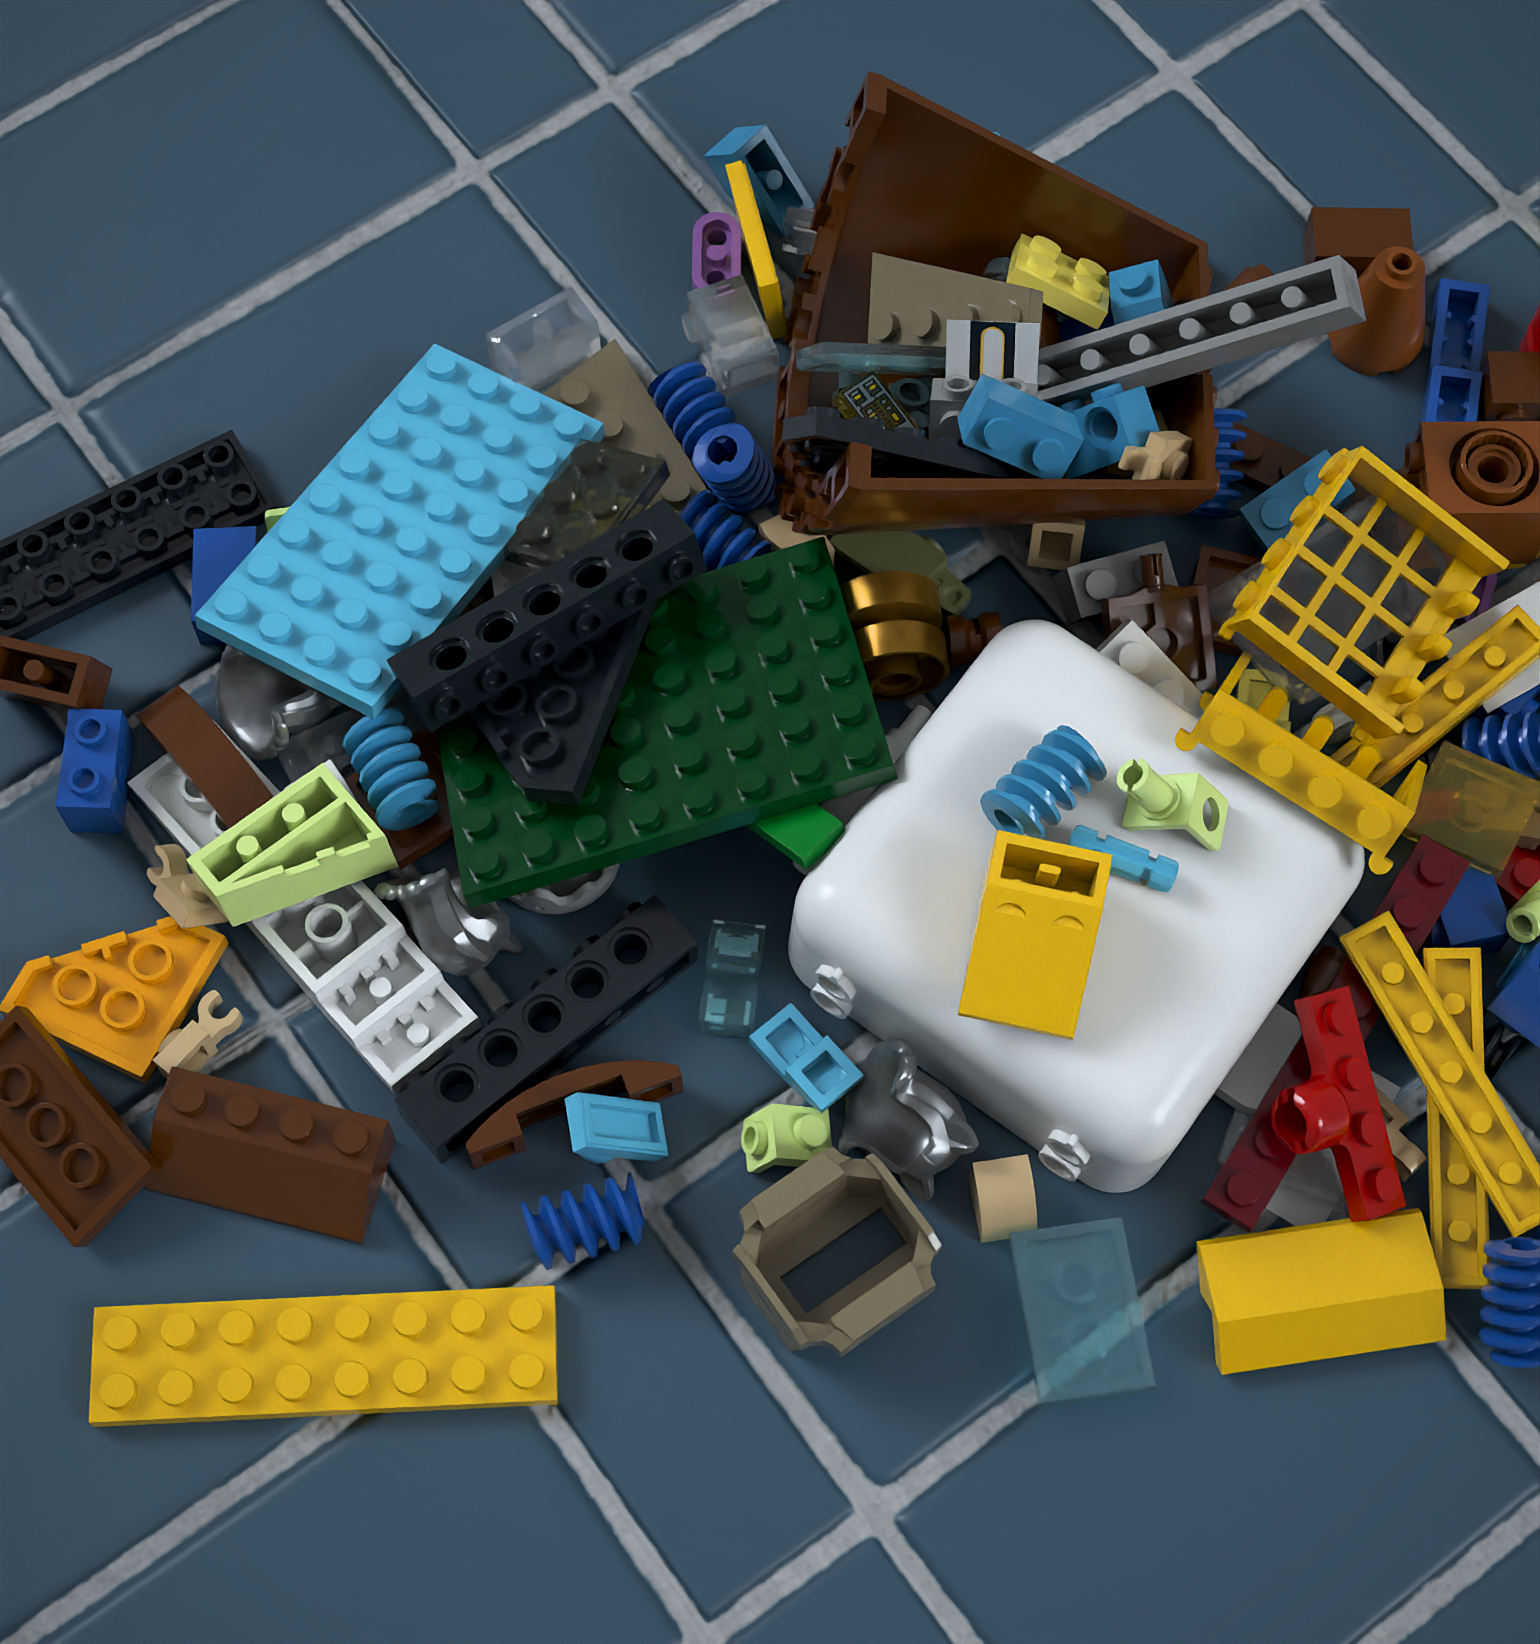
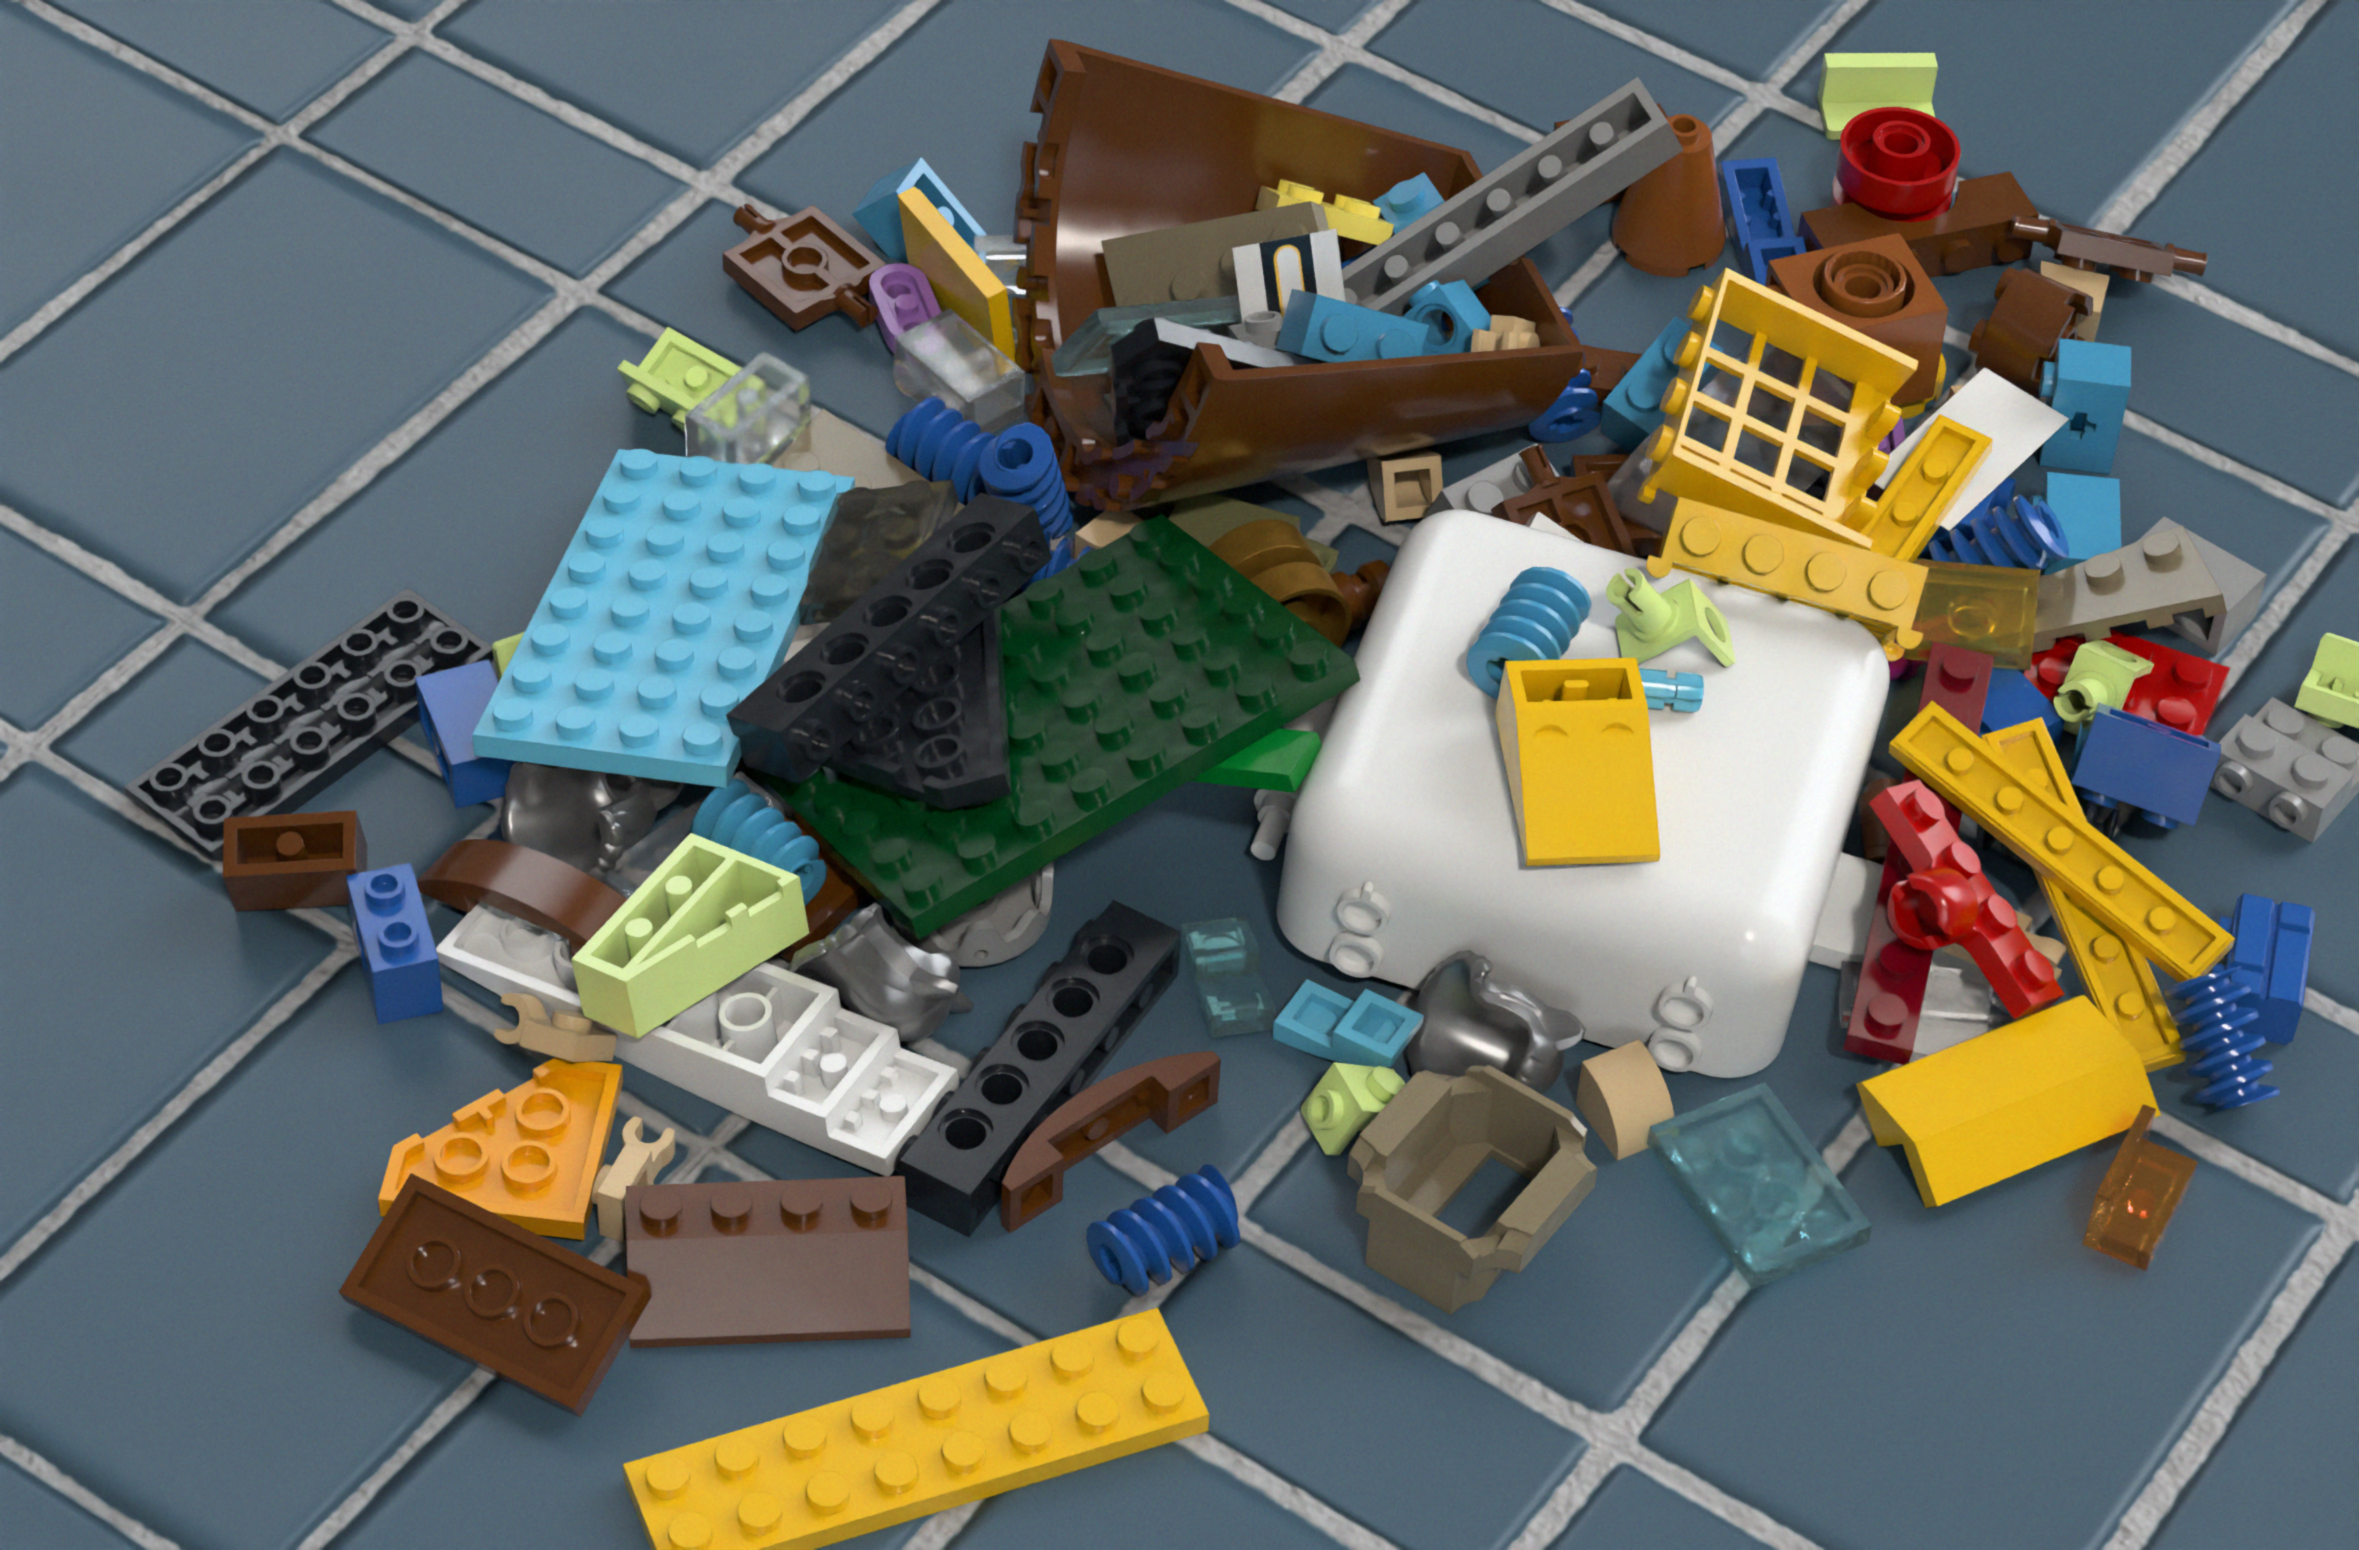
camera: 20 degrees left, 20 degrees down
(509, 281) = (675, 376): none -> yellowish green bracket
(615, 1128) = (1159, 1136): medium azure tile -> none
(650, 194) = (802, 266): none -> reddish brown plate
(1396, 1418) = (2138, 1196): none -> clear orange panel

